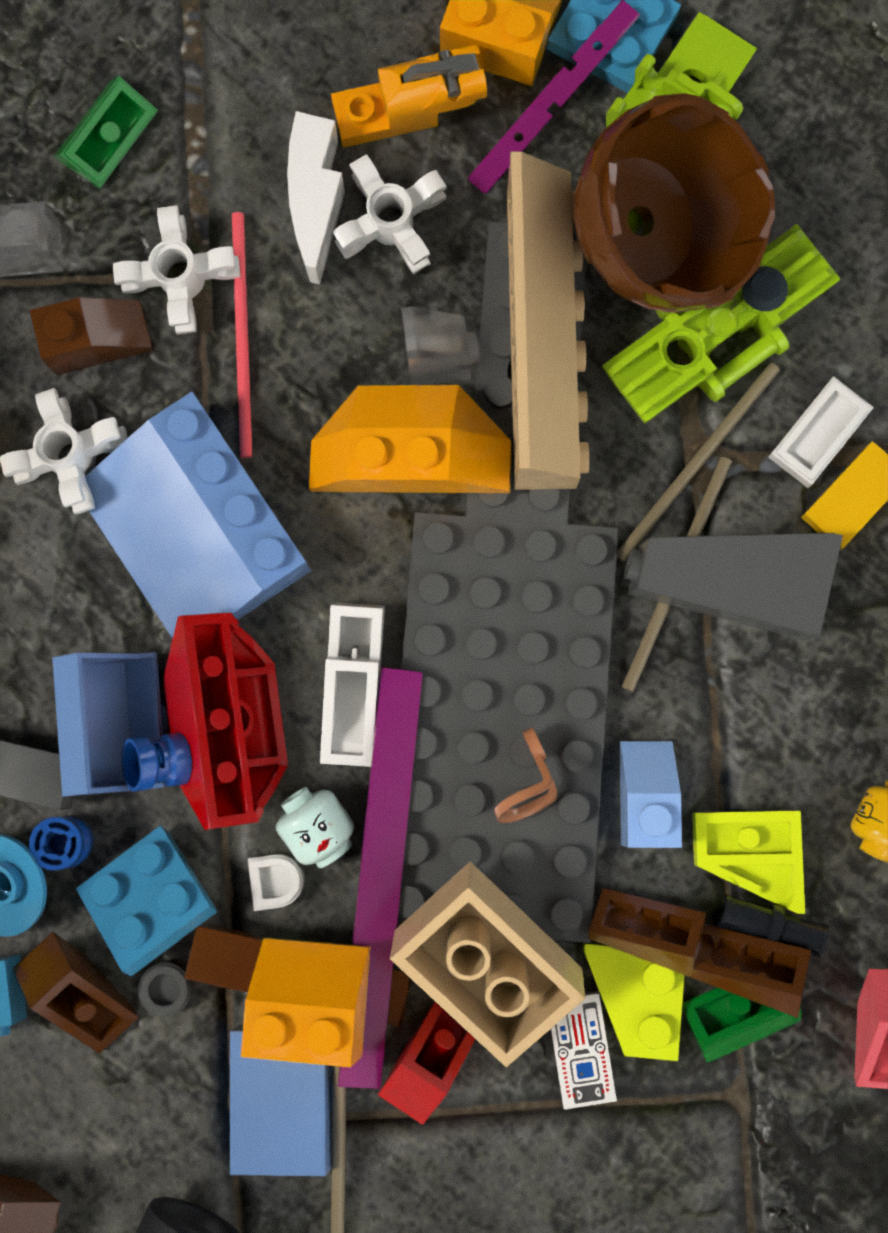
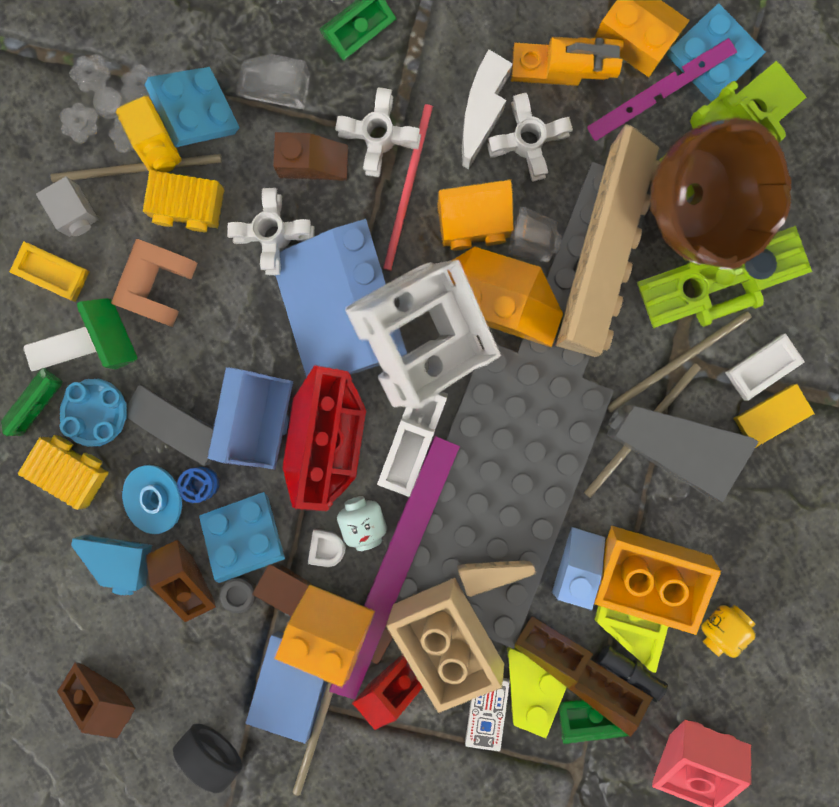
camera: 15 degrees right, 5 degrees up
(156, 761) = (273, 453): blue wheel -> none
(346, 340) = (476, 214): none -> light orange slope
(354, 485) = (455, 317): none -> white piece
(502, 810) = (507, 550): nougat piece -> none
(514, 846) = (487, 576): none -> tan slope
(761, 778) = (656, 580): none -> light orange slope

